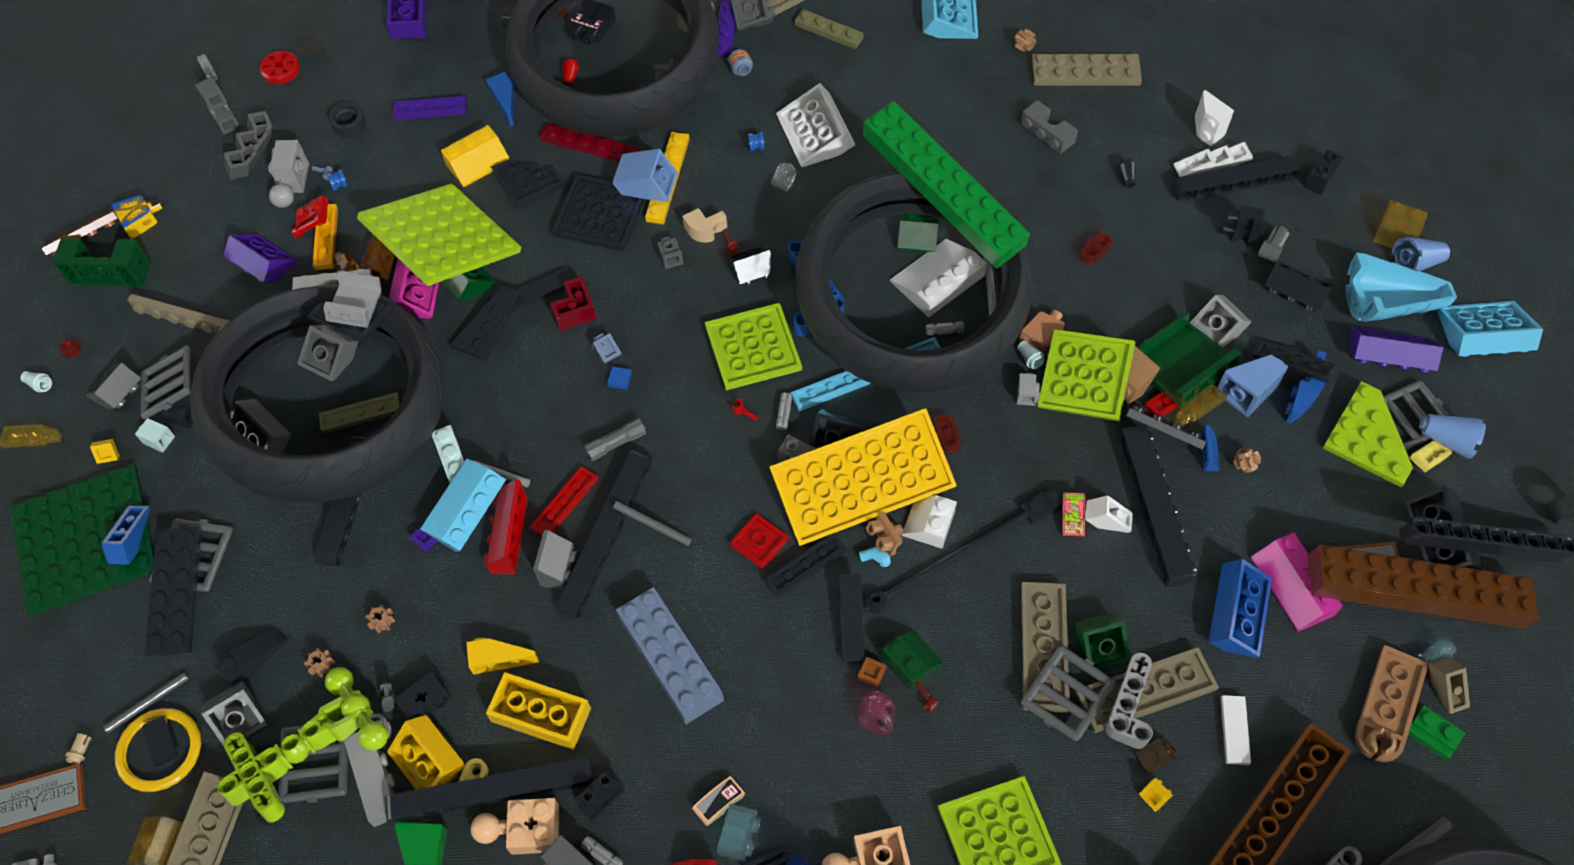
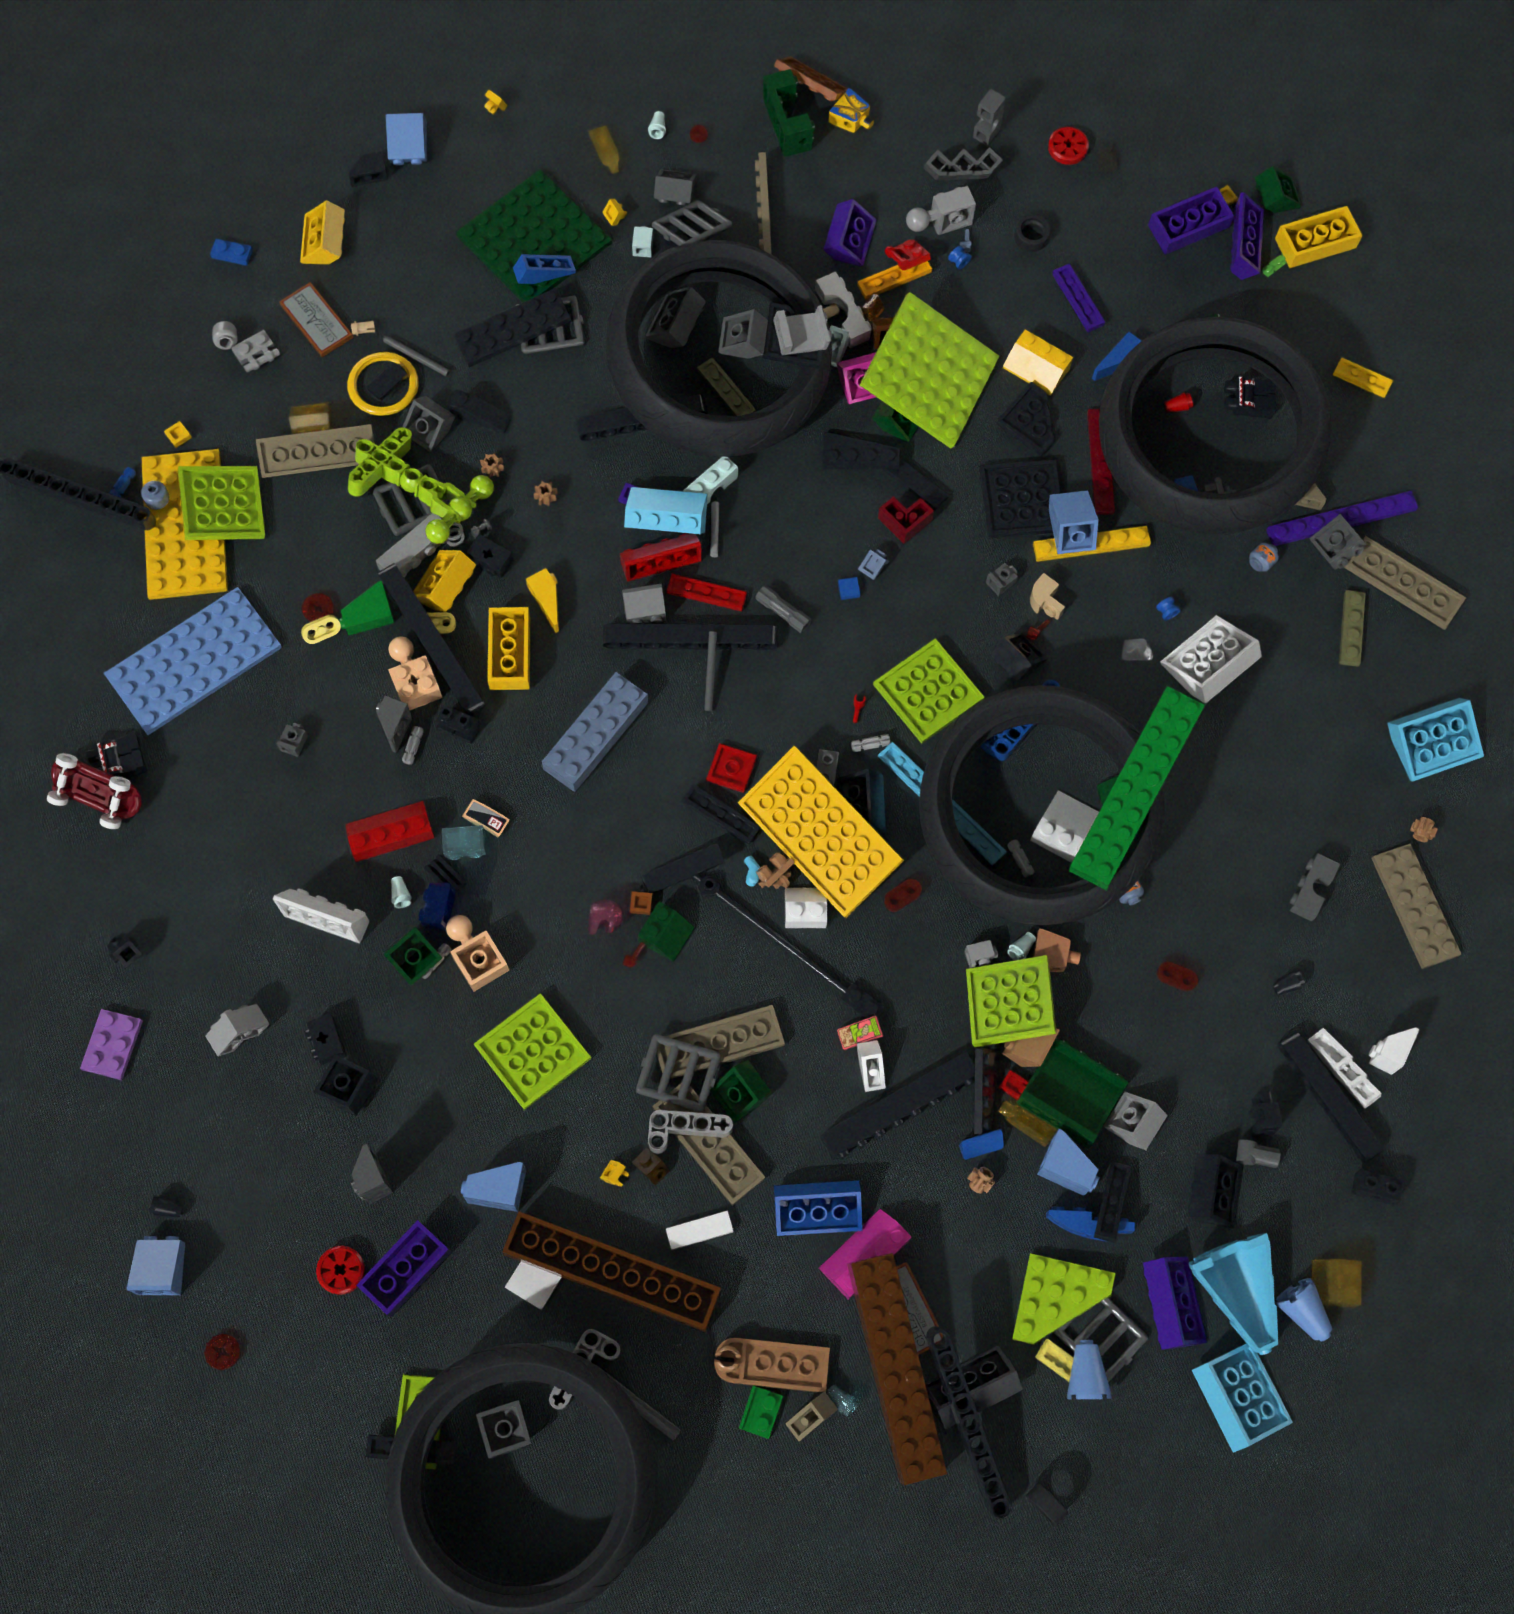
camera: 65 degrees right, 10 degrees up
(206, 66) = (1039, 85): light grey axle -> none

